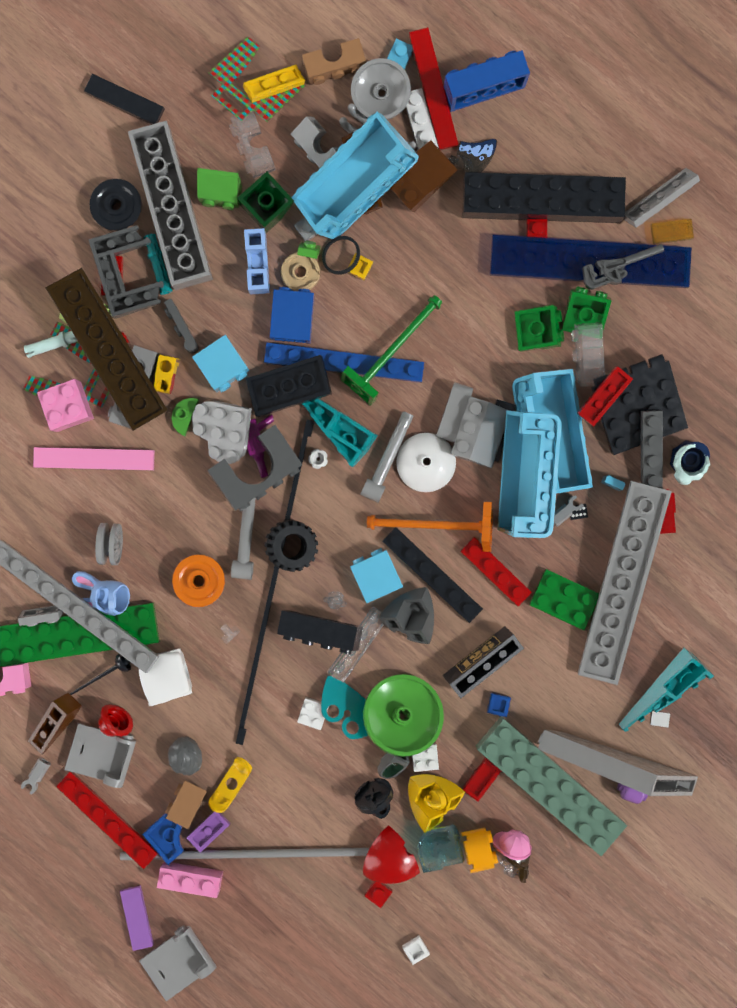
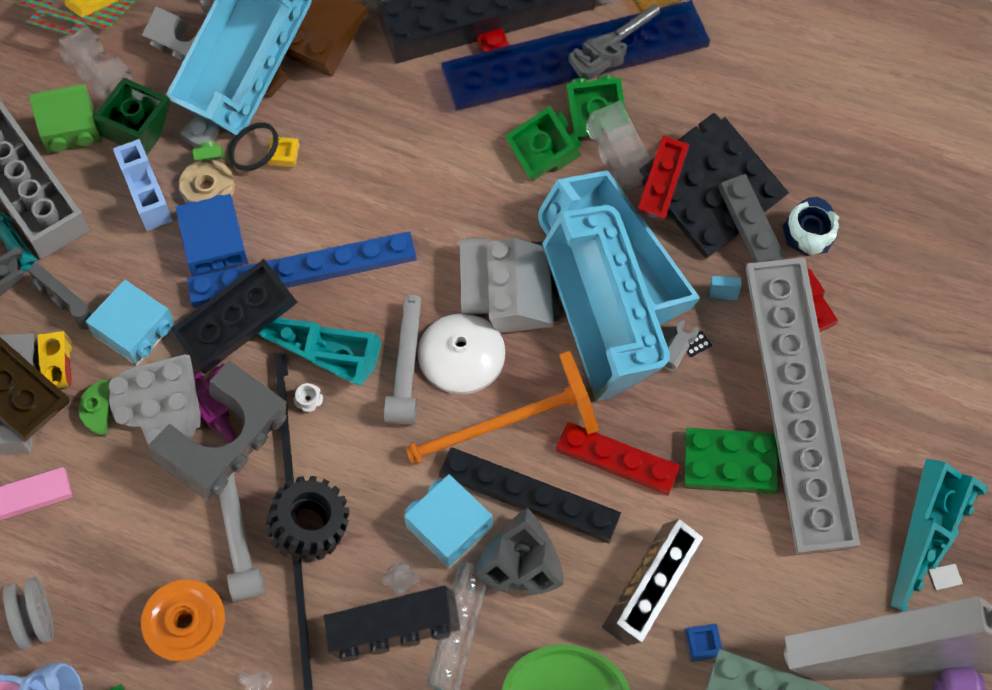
camera: 20 degrees left, 25 degrees down
(360, 384) = (338, 280): green tile -> none

